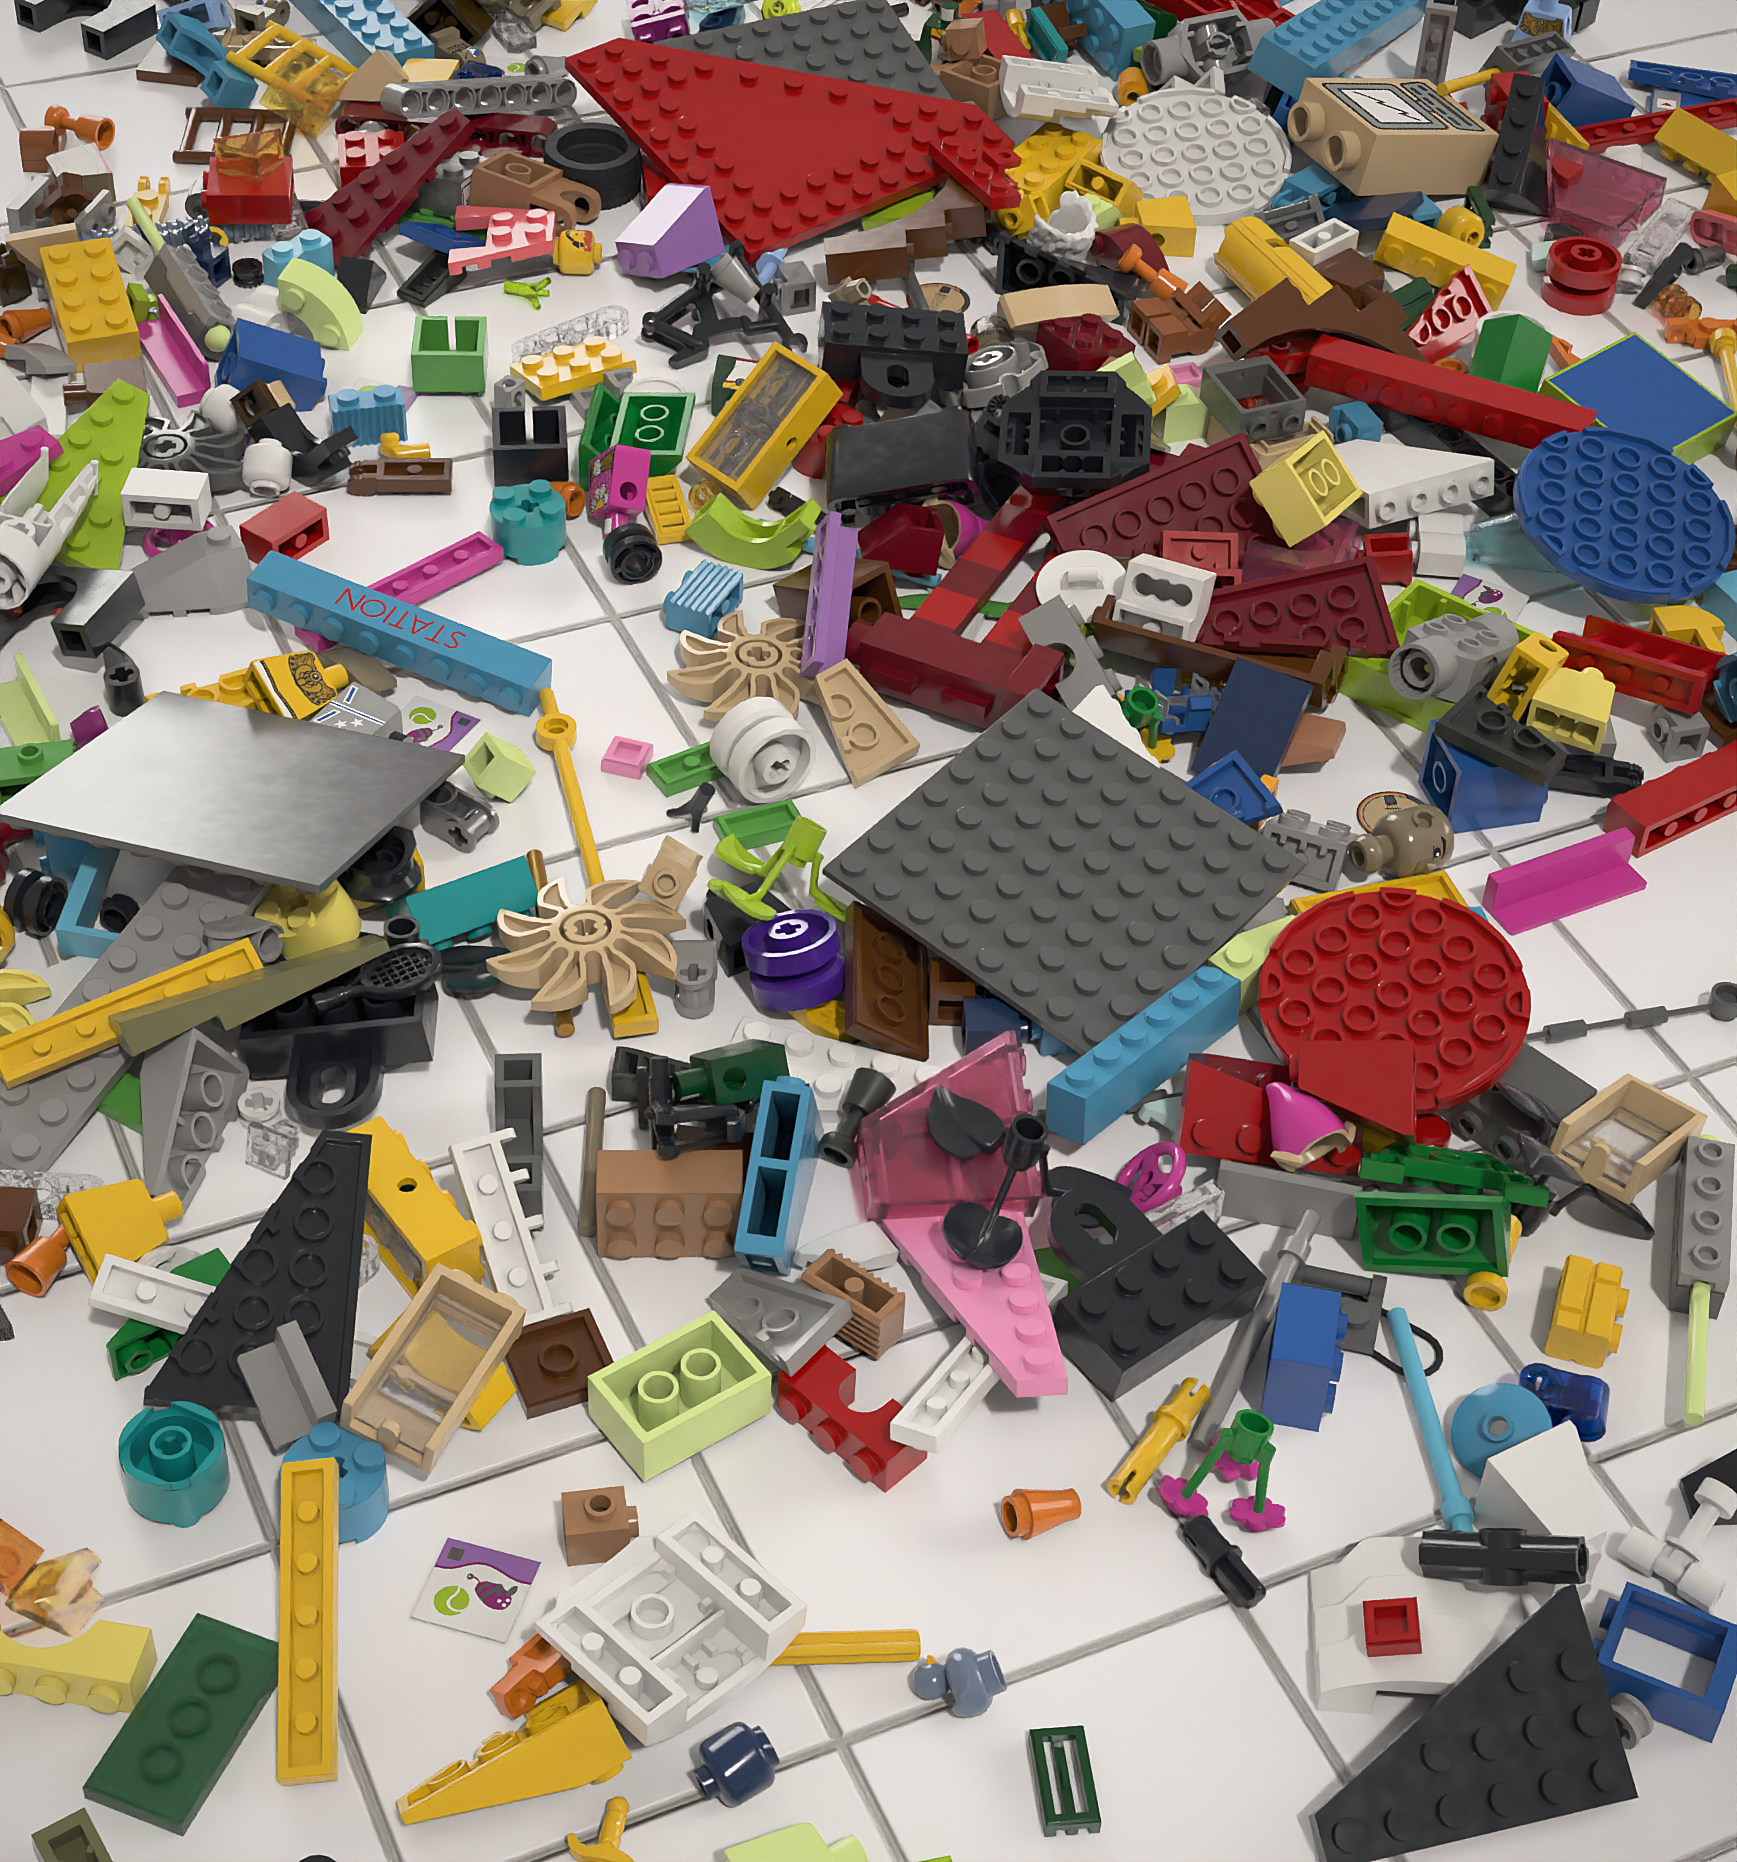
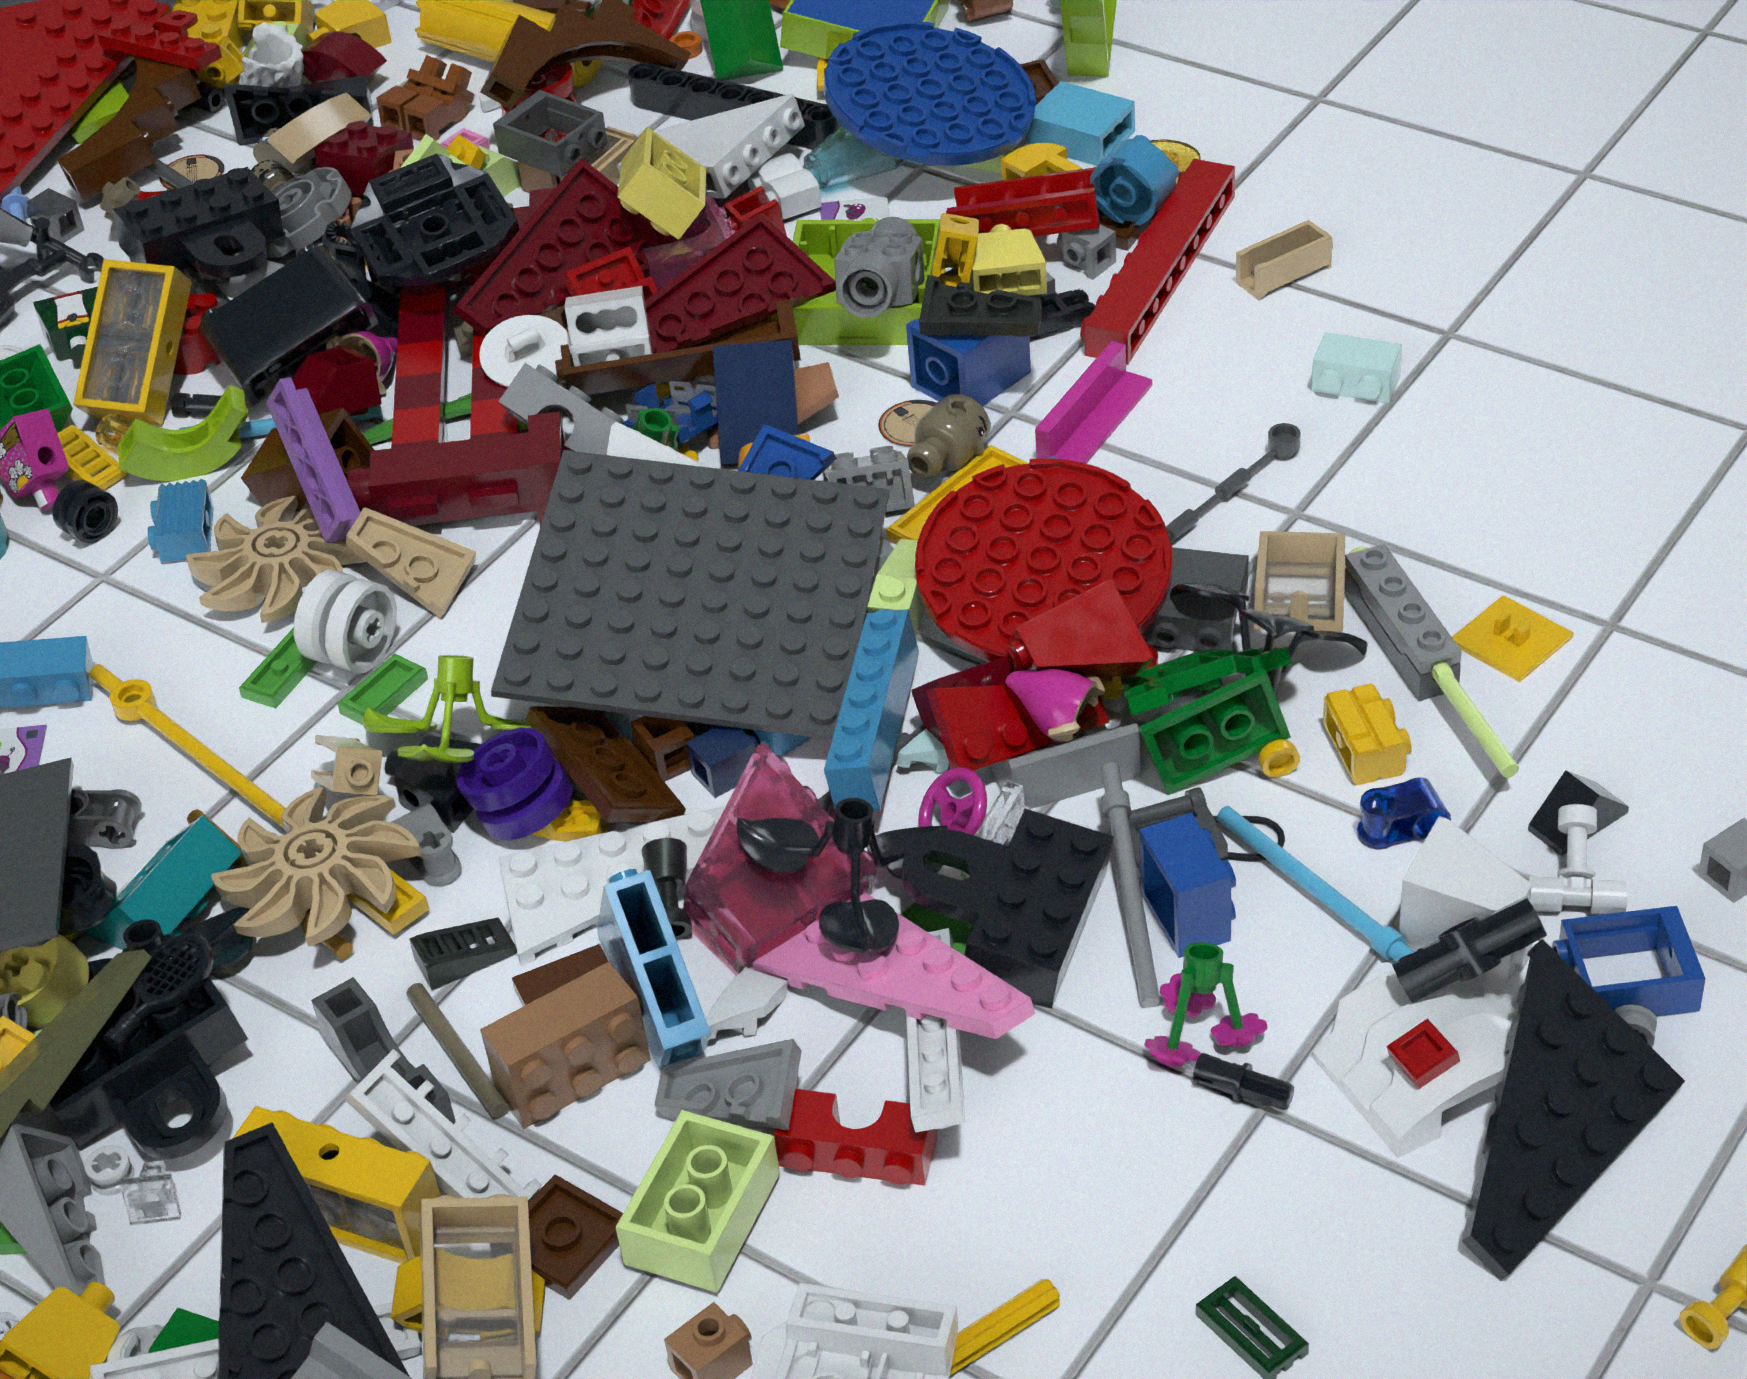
camera: 25 degrees left, 0 degrees up
(498, 768) = (107, 755): yellowish green brick -> none
(627, 757) = (214, 690): bright pink tile -> none
(659, 1113) = (558, 938): black piece -> none
(695, 806) = (316, 700): black bar -> none
(731, 1072) = (551, 899): dark green torso -> none
(875, 1305) = (811, 1028): medium nougat brick -> none
(969, 1675) = (1121, 1289): sand blue animal -> none
(1038, 1510) = (1064, 1128): orange cone -> none
(1160, 283) = (387, 72): orange piece -> none
(1169, 1425) = (1117, 998): yellow pin -> none
(1354, 422) = (642, 114): dark azure brick -> none
(1441, 394) = (706, 61): red brick -> none
(1480, 1409) = (1366, 882): dark azure dish -> none

